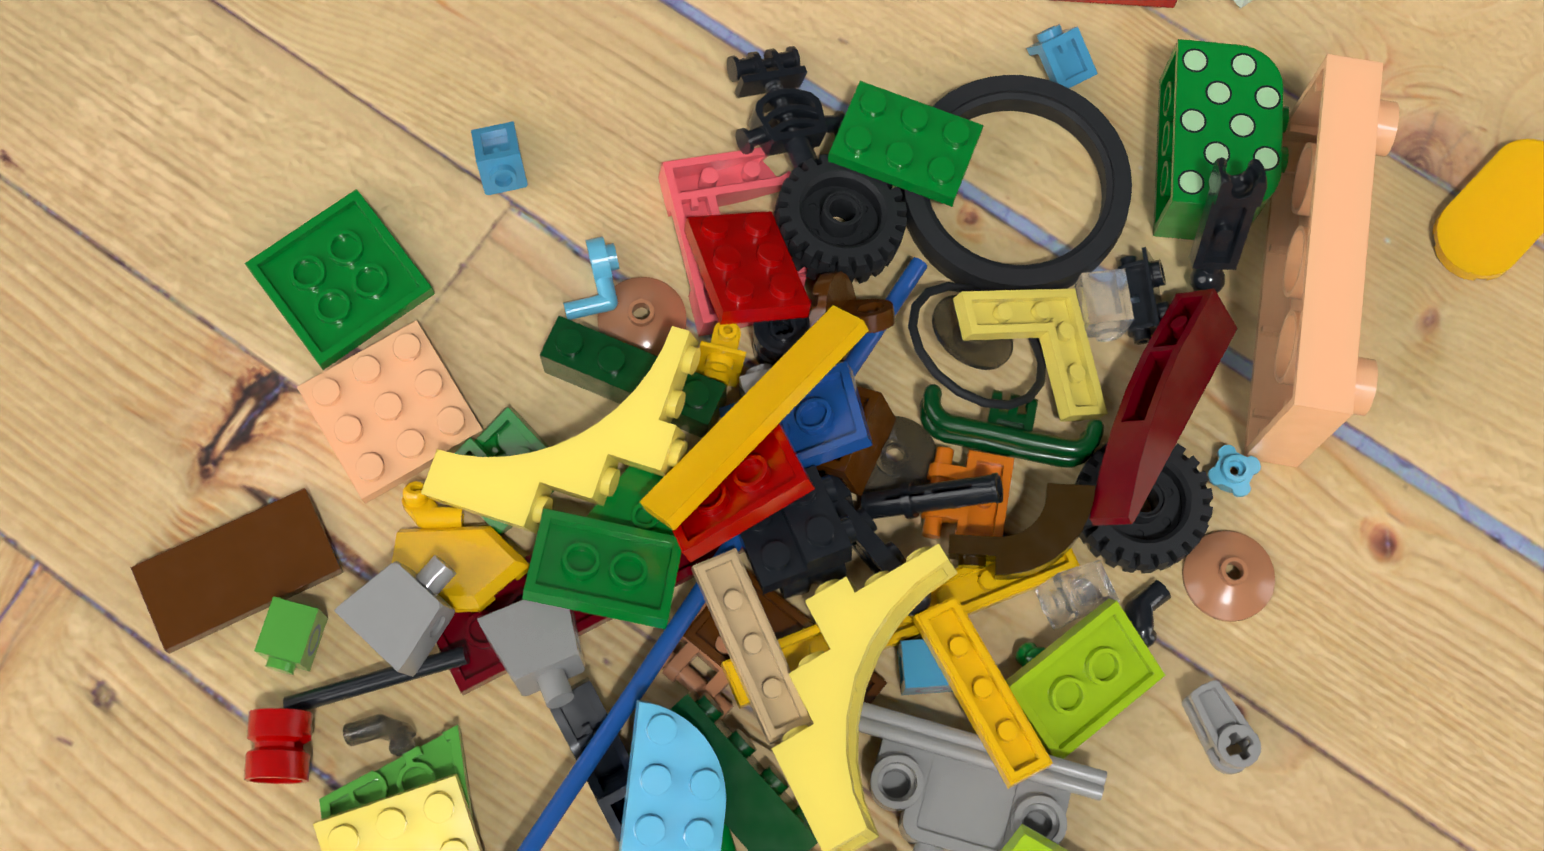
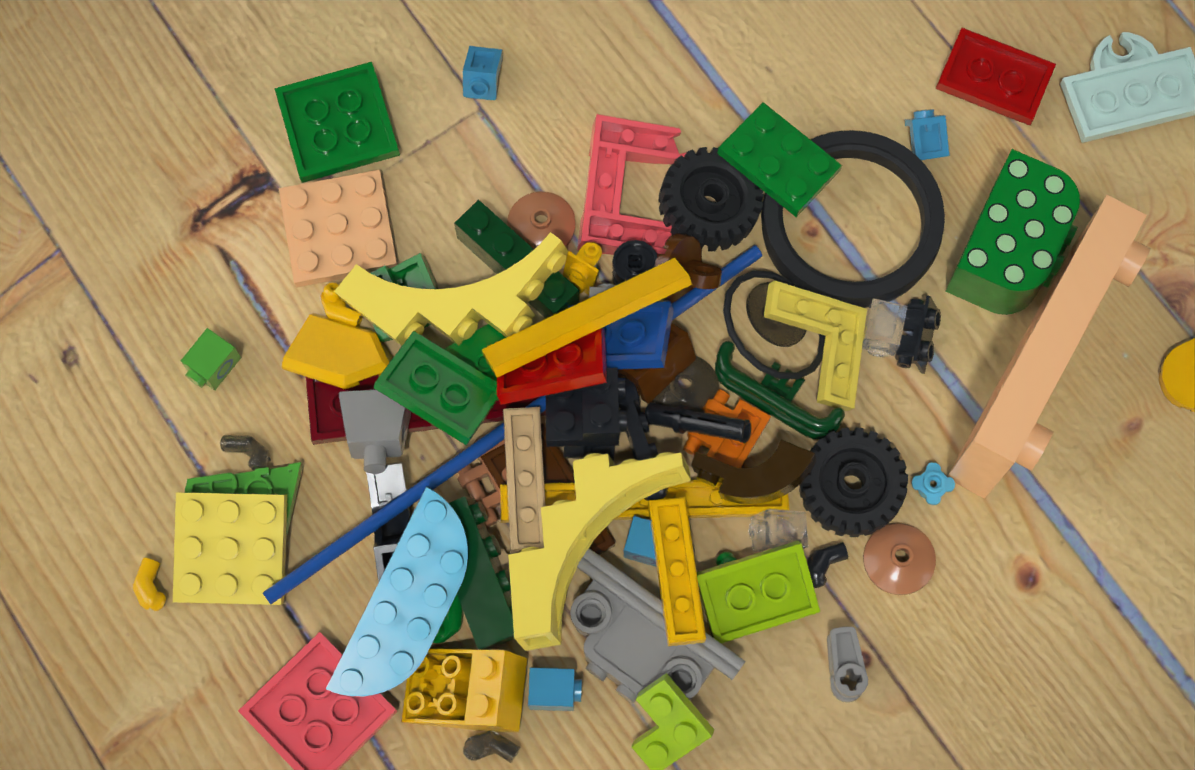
camera: 25 degrees right, 0 degrees up
(236, 570) = (190, 301): reddish brown tile -> none
(278, 746) = (173, 433): red wheel -> none
(375, 681) = (257, 411): black bar -> none
(401, 612) = (289, 369): light grey torso -> none
(602, 261) = (527, 171): medium azure plate -> none
(746, 268) = (625, 210): red plate -> none
(795, 115) = (707, 113): black piece -> none
(1160, 402) = (893, 409): dark red slope -> none
(1225, 223) = (990, 298): black plate -> none

